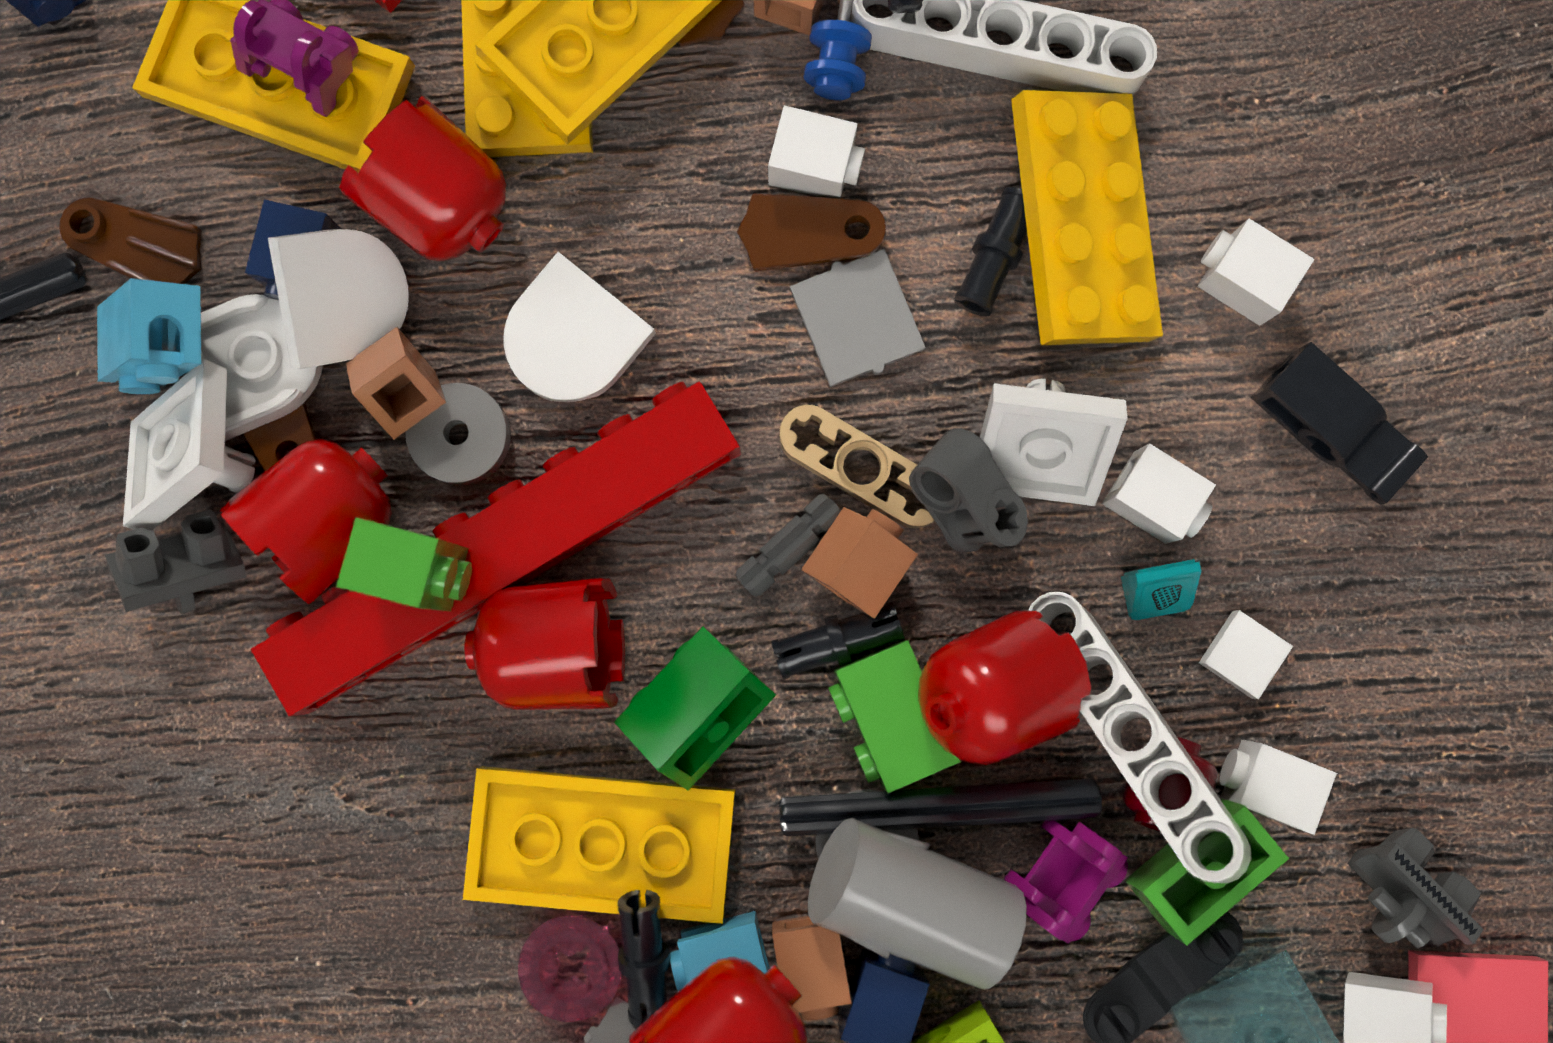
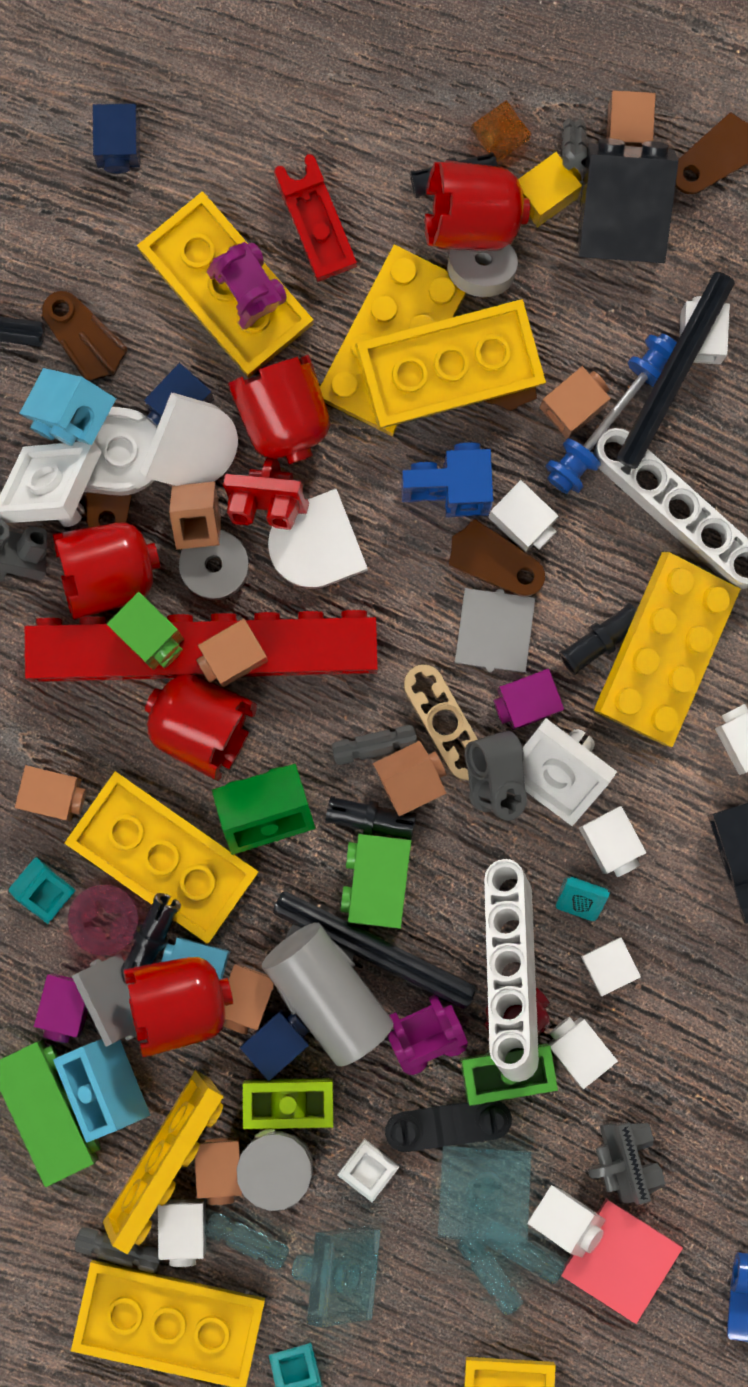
camera: 25 degrees right, 0 degrees up
(408, 846) = (50, 794): none -> nougat brick
(470, 302) = (265, 490): none -> red hips
(470, 974) = (41, 890): none -> teal slope
(537, 533) = (231, 654): none -> nougat brick
(711, 153) = (462, 481): none -> blue brick
(951, 378) = (528, 700): none -> magenta brick
(1003, 688) = (449, 898): red cylinder -> none

